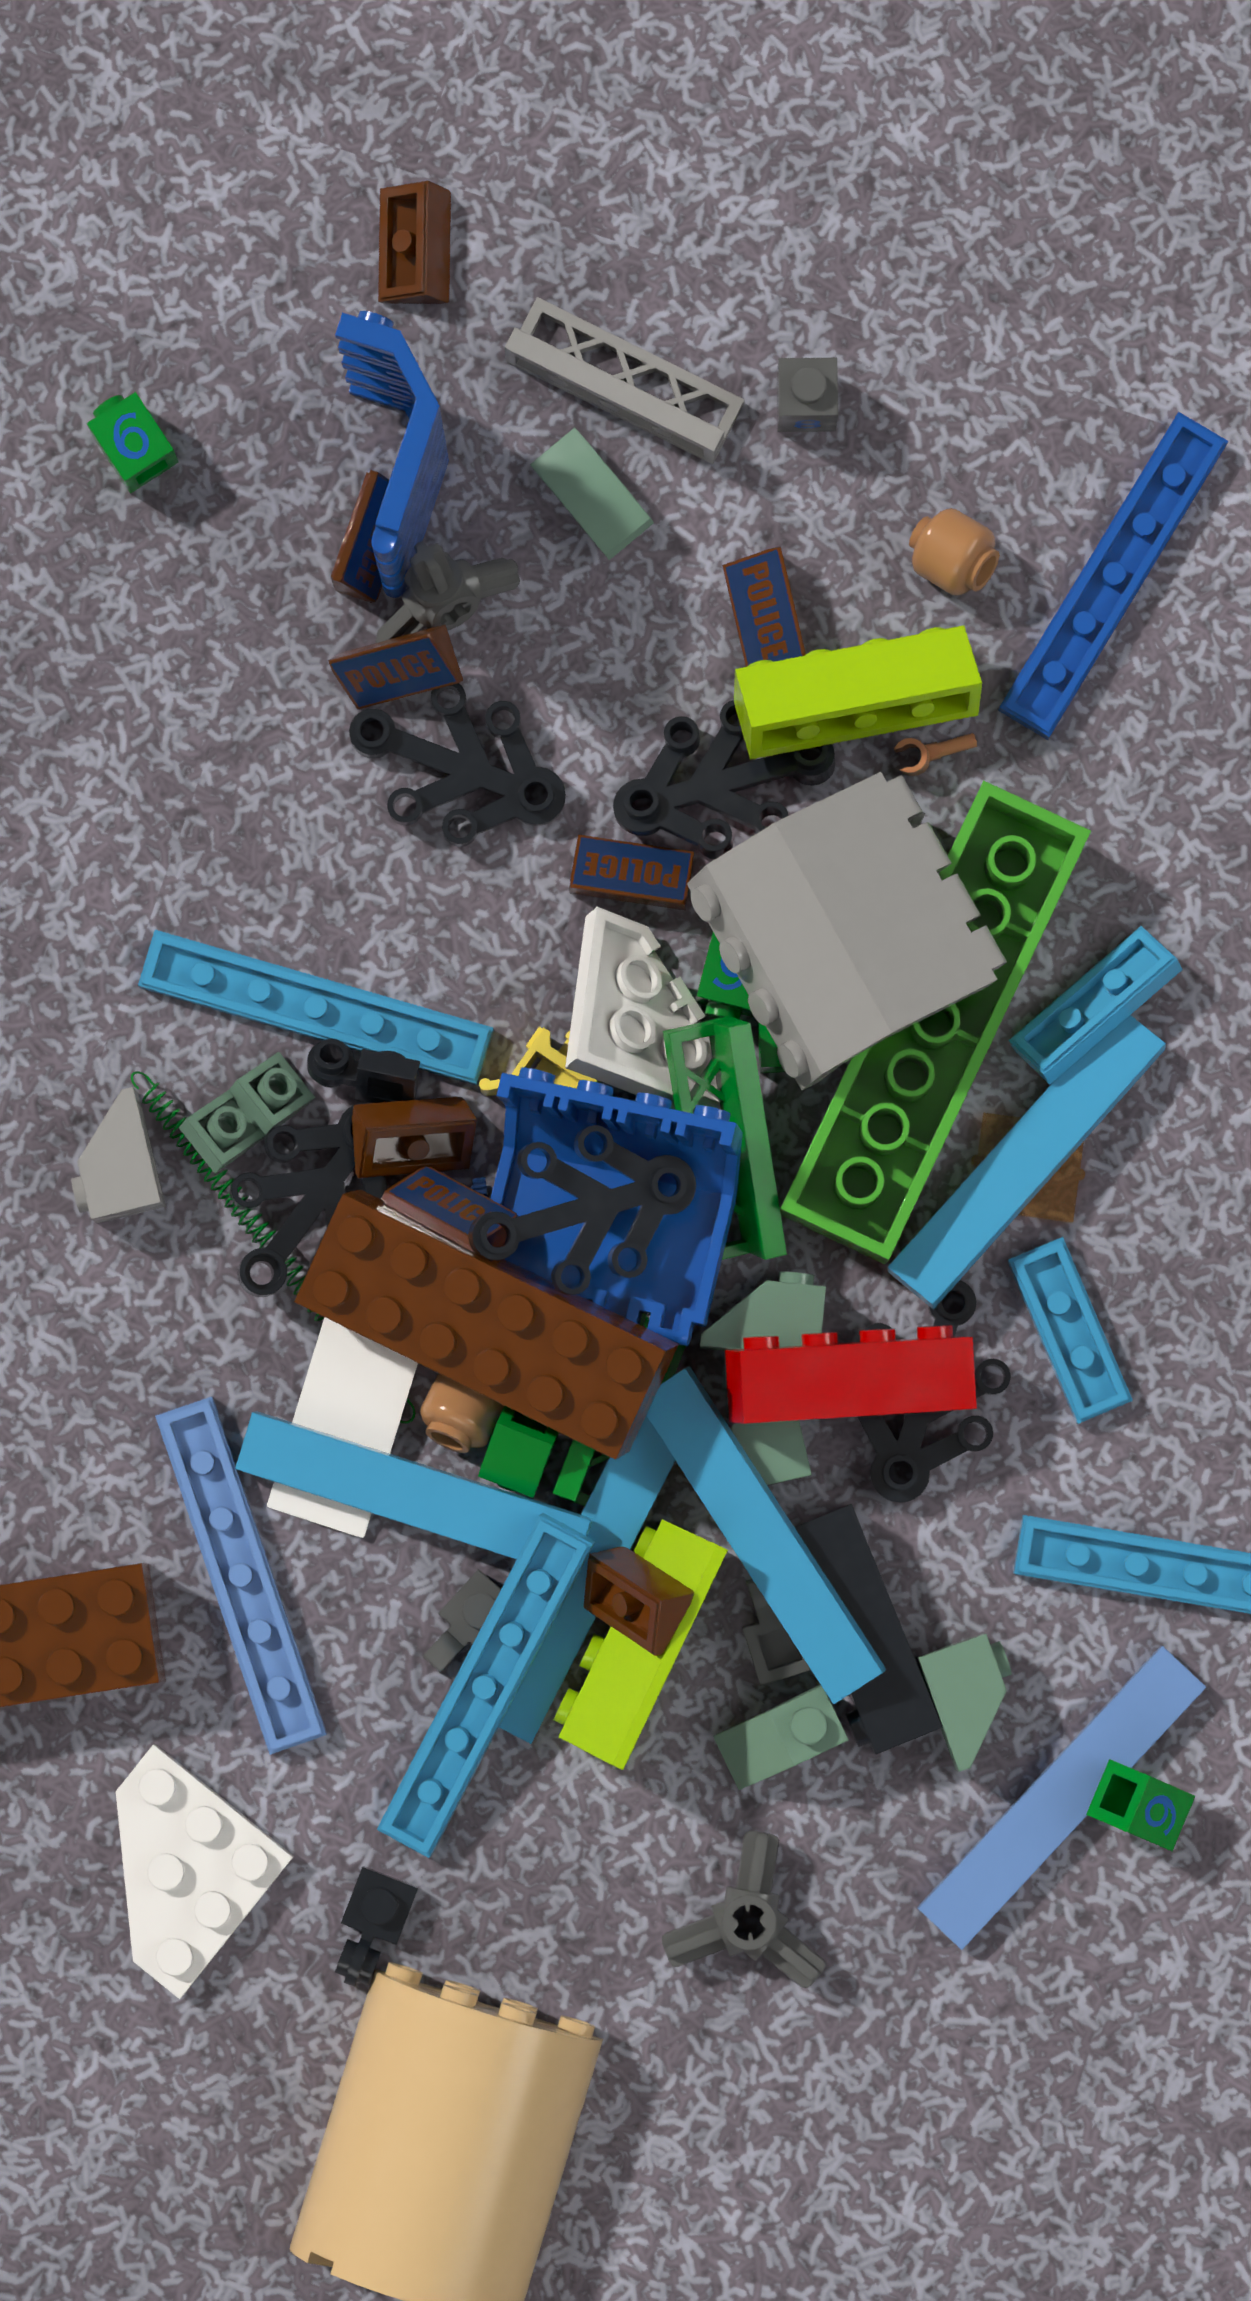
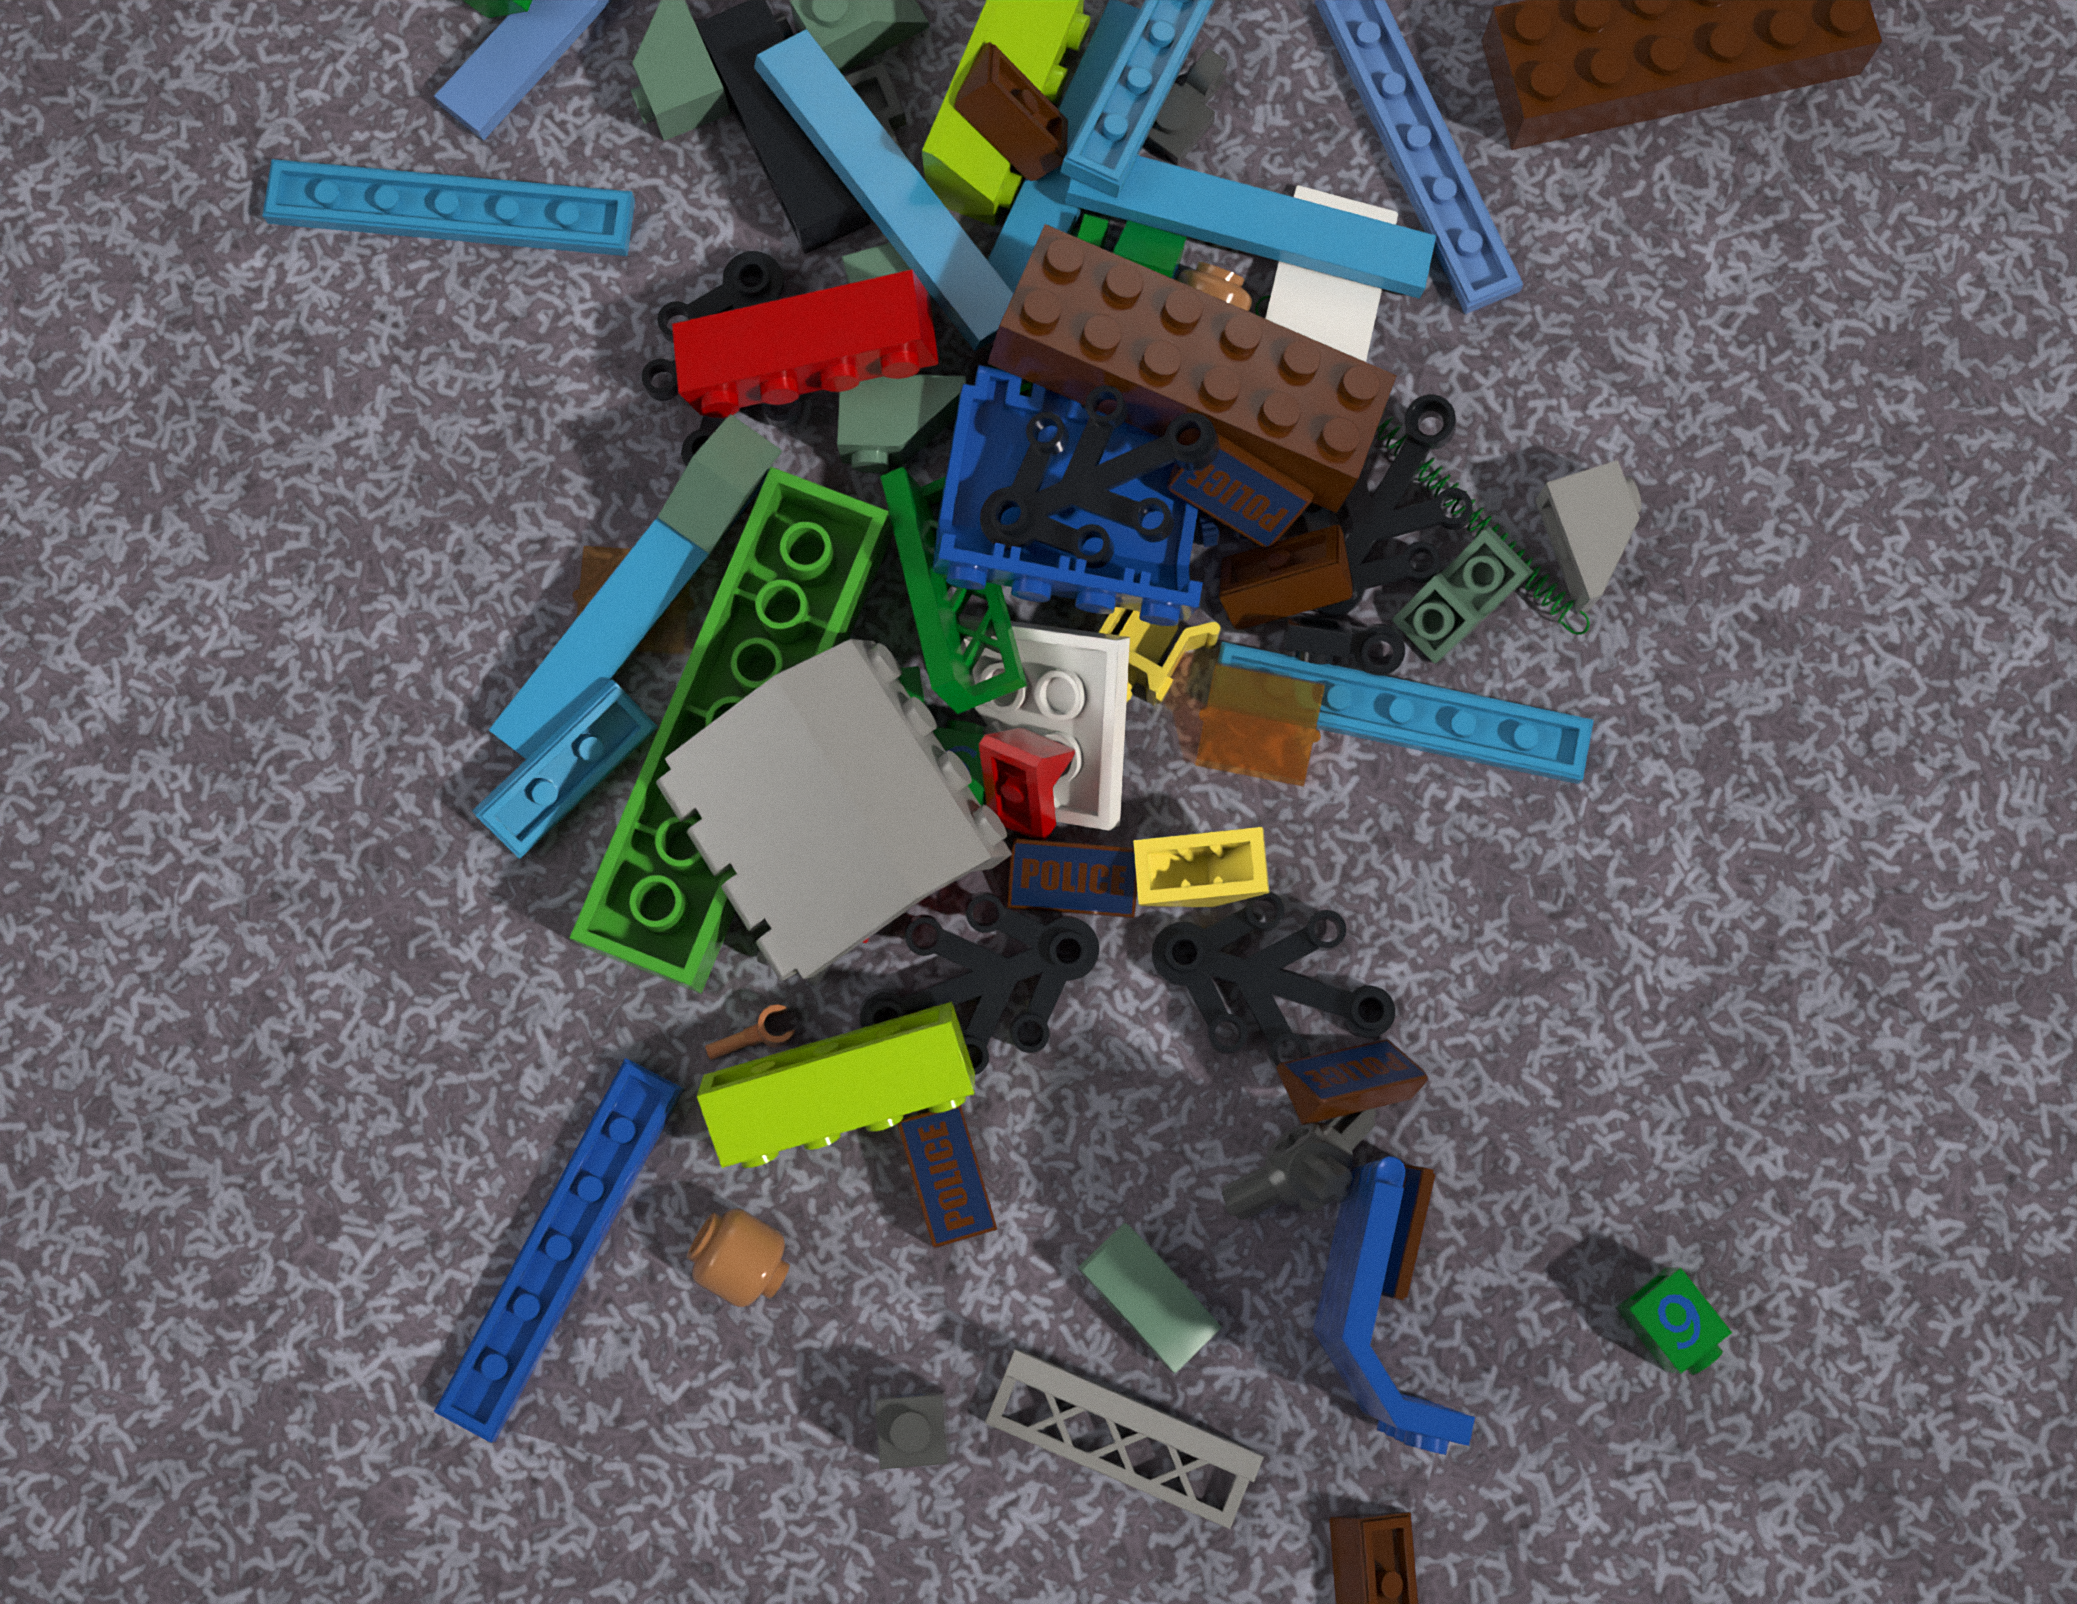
camera: 175 degrees right, 5 degrees down
(448, 1001) = (1259, 724): none -> clear orange piece
(515, 863) = (1201, 868): none -> light yellow slope
(670, 959) = (1020, 779): none -> red slope
(936, 1252) = (718, 483): none -> sand green slope
(1069, 1330) = (584, 437): dark azure tile -> none

